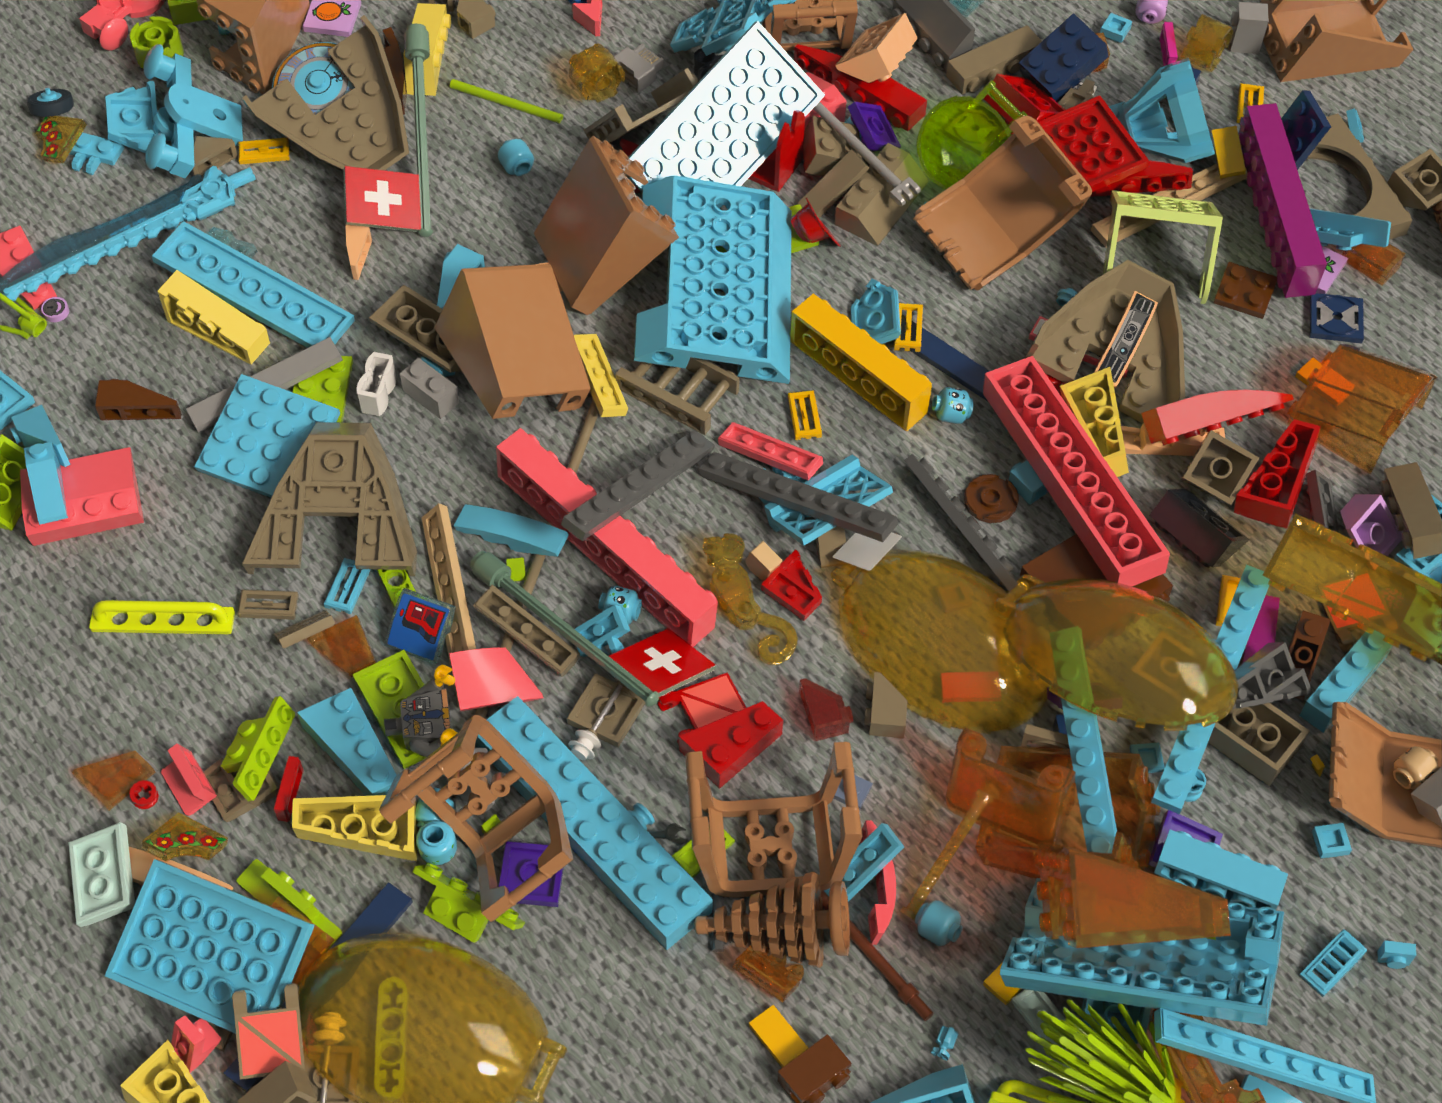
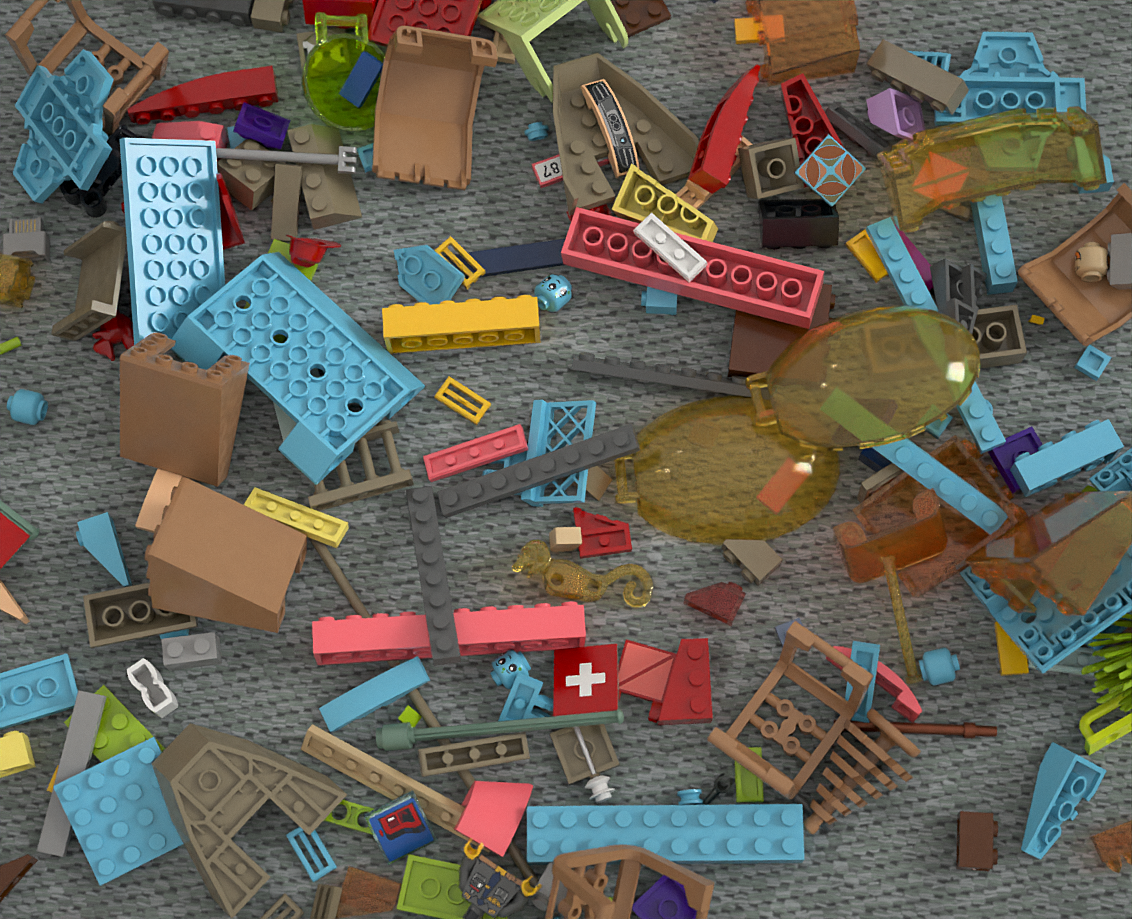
camera: 45 degrees left, 15 degrees up
(769, 972) = (881, 811): clear orange plate -> none
(777, 1036) = (929, 842): yellow tile -> none
(865, 551) = (624, 468): white sticker -> none
(879, 50) = (194, 58): light nougat slope -> none
(946, 1040) = (1021, 735): medium azure piece -> none
(970, 158) = (361, 79): none -> blue tile
(985, 504) = (648, 336): reddish brown tile -> none
(1069, 436) = (670, 247): none -> white tile
(1262, 505) = (829, 170): none -> tile
(1307, 642) = (945, 239): reddish brown slope -> none

